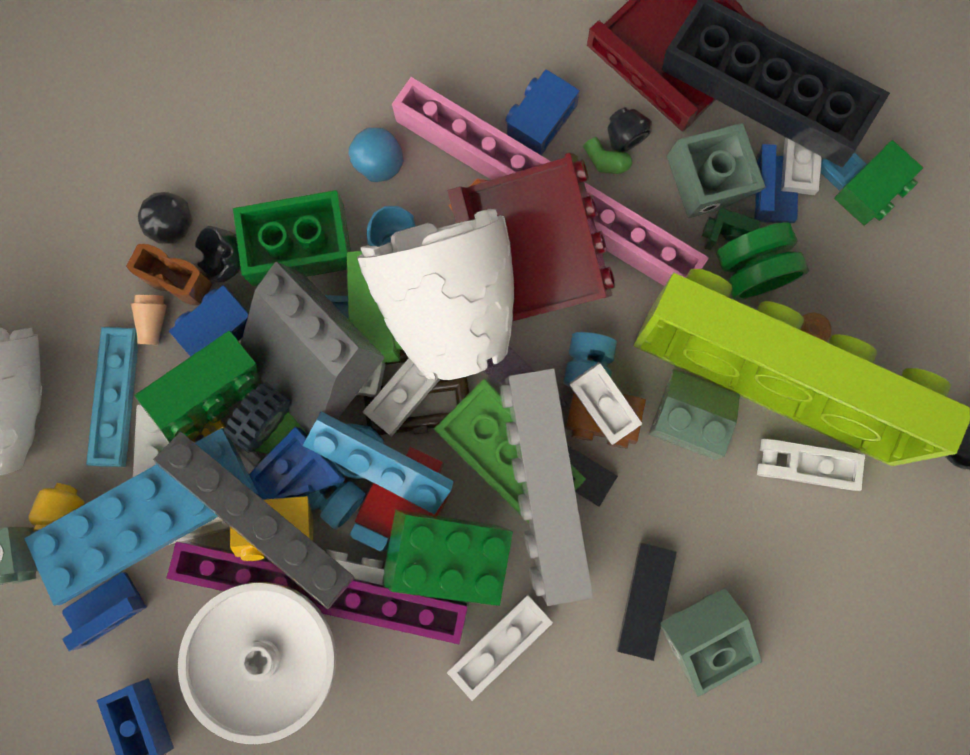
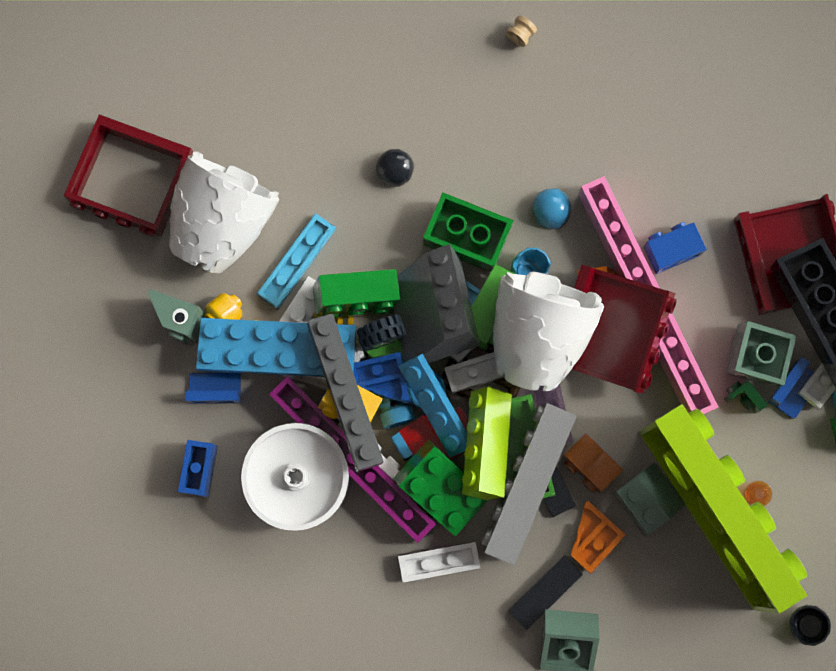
camera: 30 degrees right, 0 degrees up
(148, 318) = (348, 225): light nougat cone -> none
(169, 274) = (373, 203): dark orange brick -> none
(211, 319) = (384, 253): blue brick -> none
(219, 253) = (415, 213): black hair -> none
(468, 471) = (487, 444): none -> lime brick
(585, 346) = (597, 430): dark azure wheel -> none
(605, 403) = (595, 456): white plate -> none
(607, 161) = (696, 304): bright green arm -> none
(628, 129) = (723, 292): black cone -> none
(663, 500) = (595, 538): none -> orange wing
(762, 260) = (751, 430): green wheel -> none
(812, 465) = (702, 576): white plate -> none

